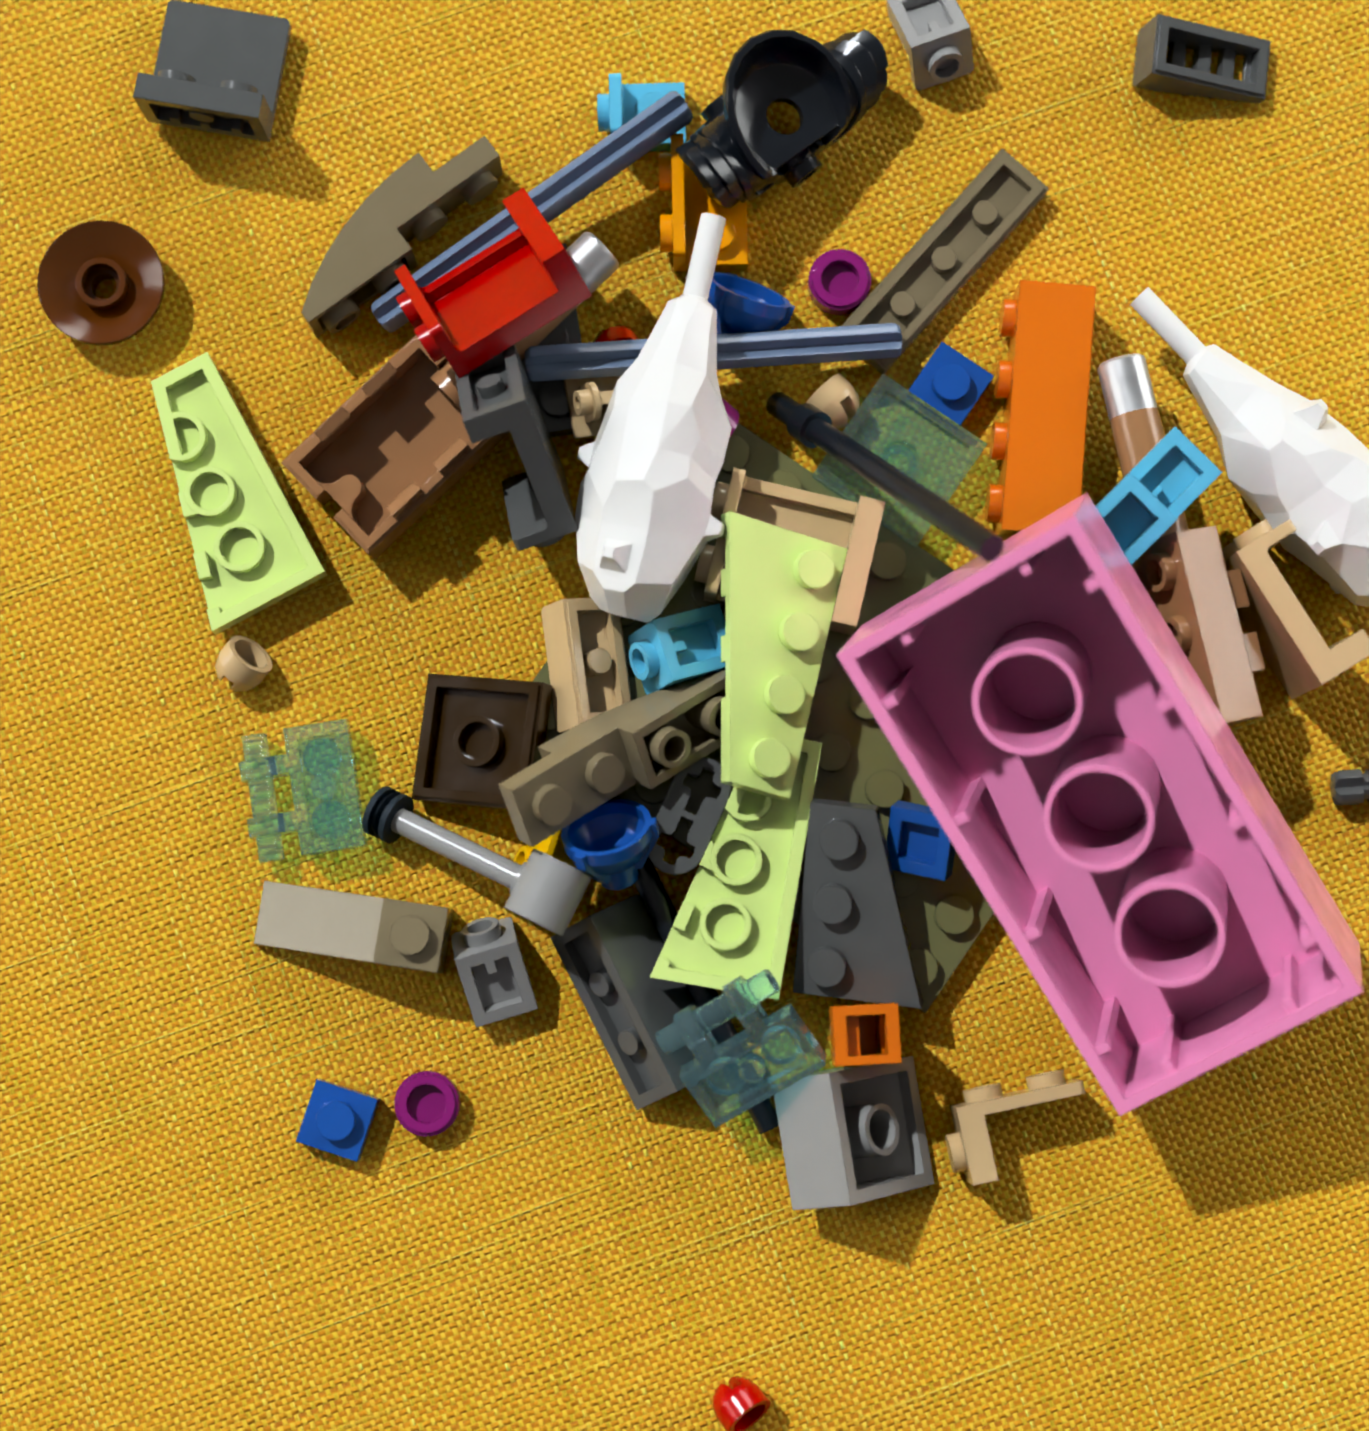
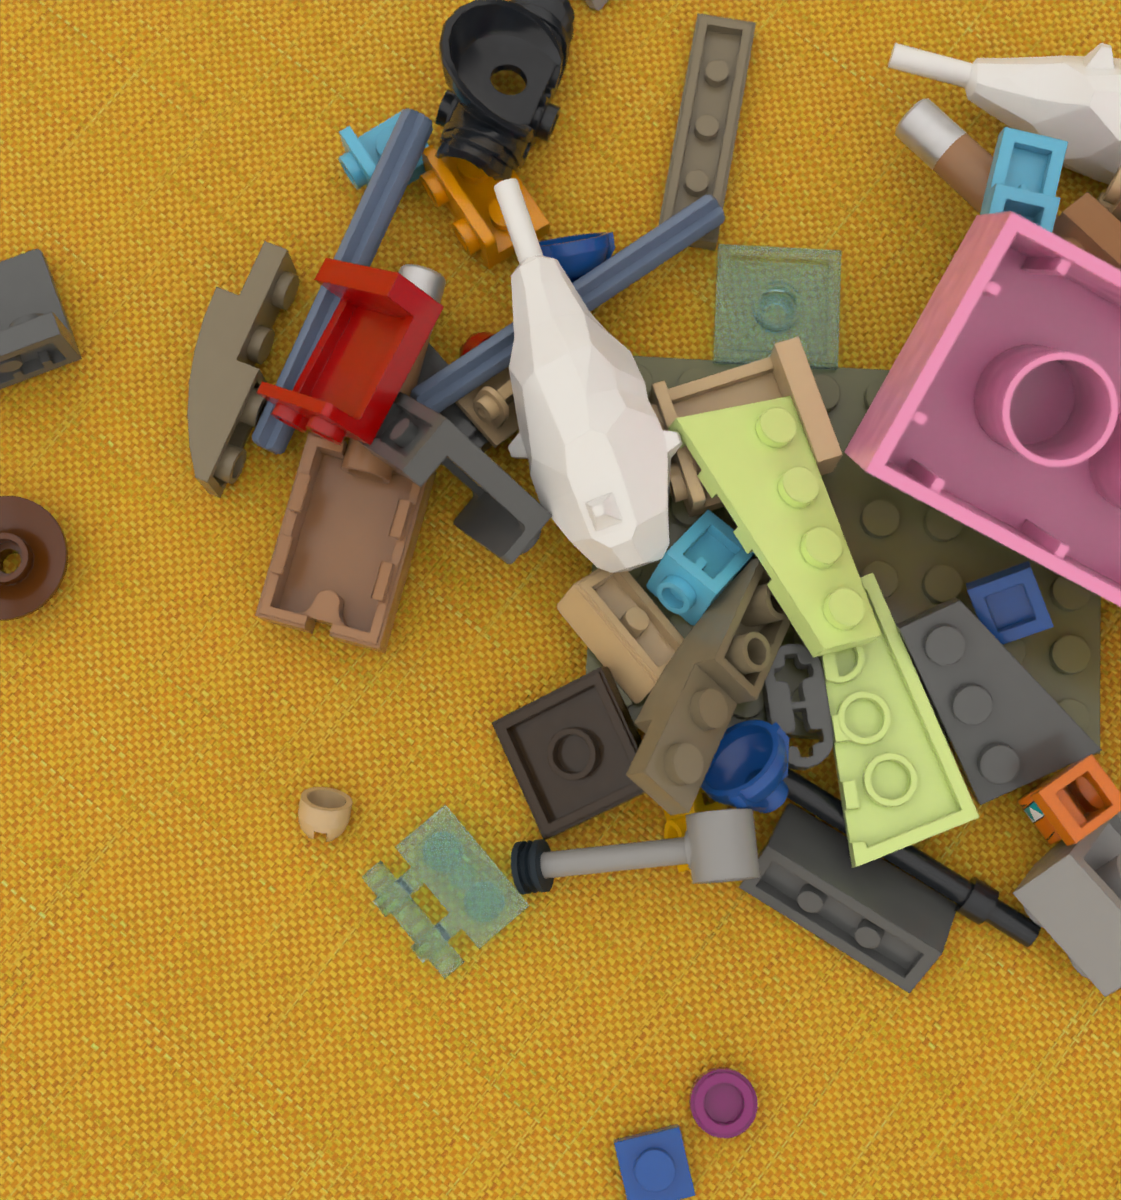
camera: 25 degrees left, 5 degrees down
(237, 515) = (241, 685): yellowish green wing -> none
(354, 926) = (563, 985): slope -> none
(492, 970) = (709, 946): light grey bracket -> none
(751, 1064) = (992, 889): clear light blue plate -> none
(815, 430) = (694, 317): black bar -> none
(837, 400) = (693, 292): tan hinge -> none
(839, 282) = (632, 196): magenta tile -> none
(951, 383) = (777, 220): blue plate -> none
(1043, 403) = (867, 195): orange brick -> none

